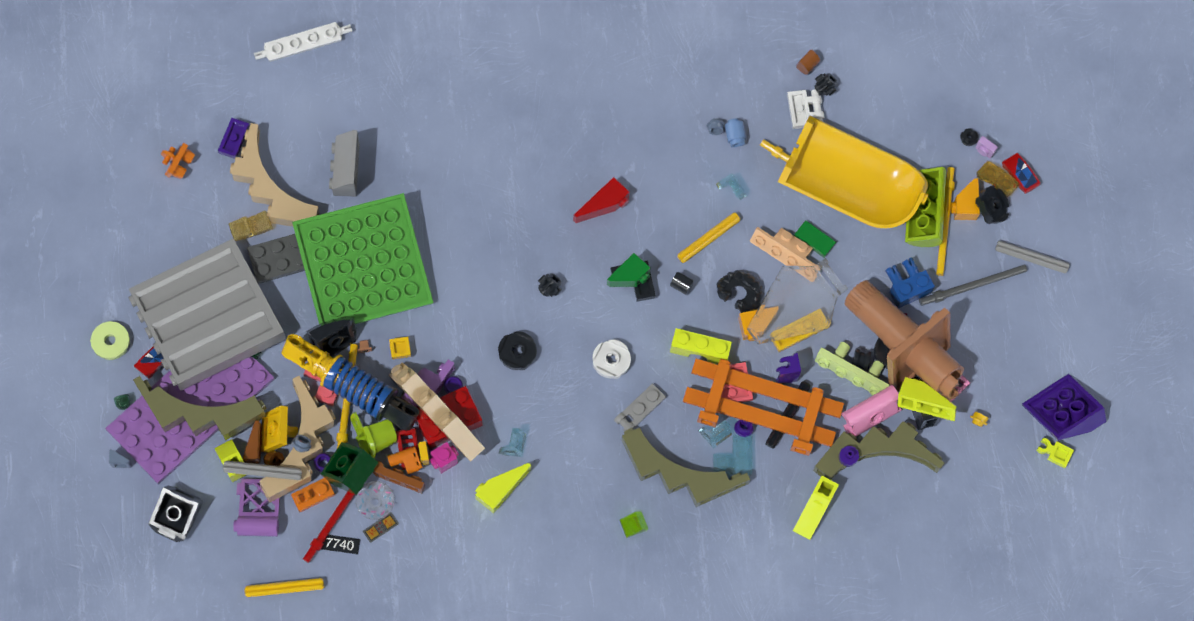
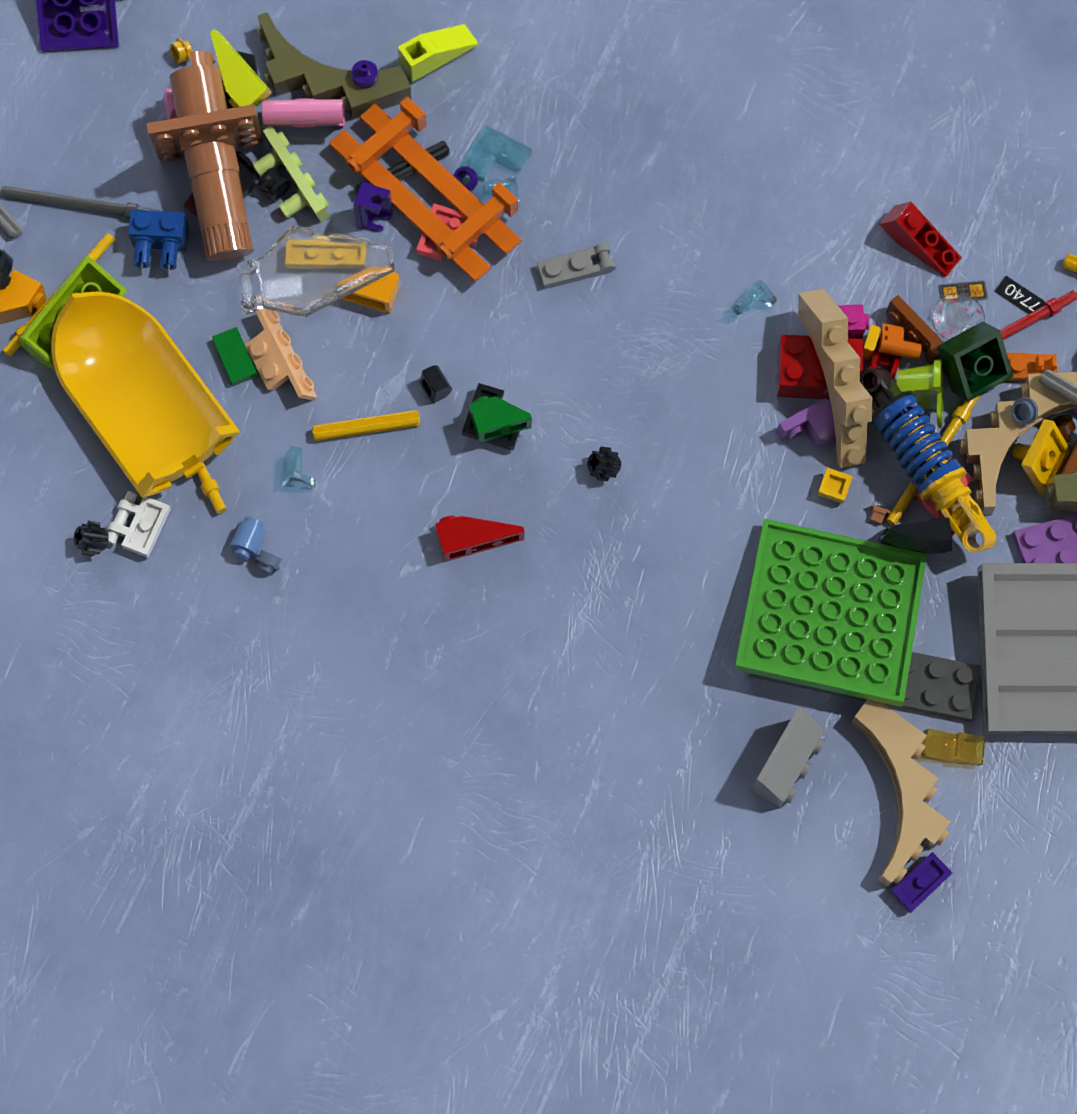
camera: 150 degrees left, 0 degrees up
(182, 154) = (1017, 892): orange hips -> none
(303, 42) = (758, 978): white plate -> none
(321, 457) = (1002, 390): dark purple plate -> none
(426, 544) = (919, 237): none -> red slope
(452, 384) = (790, 405): dark purple plate -> none
(498, 489) = (796, 257): neon yellow slope -> none
(519, 361) = (688, 423): black plate -> none
(610, 348) = (578, 324): white plate -> none
(633, 524) = (658, 143): clear neon green slope -> none
(689, 343) = (473, 303): neon yellow arch -> none
(701, 485) = (553, 139): olive arch -> none
(748, 282) = (356, 352): black piece -> none
(808, 62) = (93, 583): dark orange brick -> none

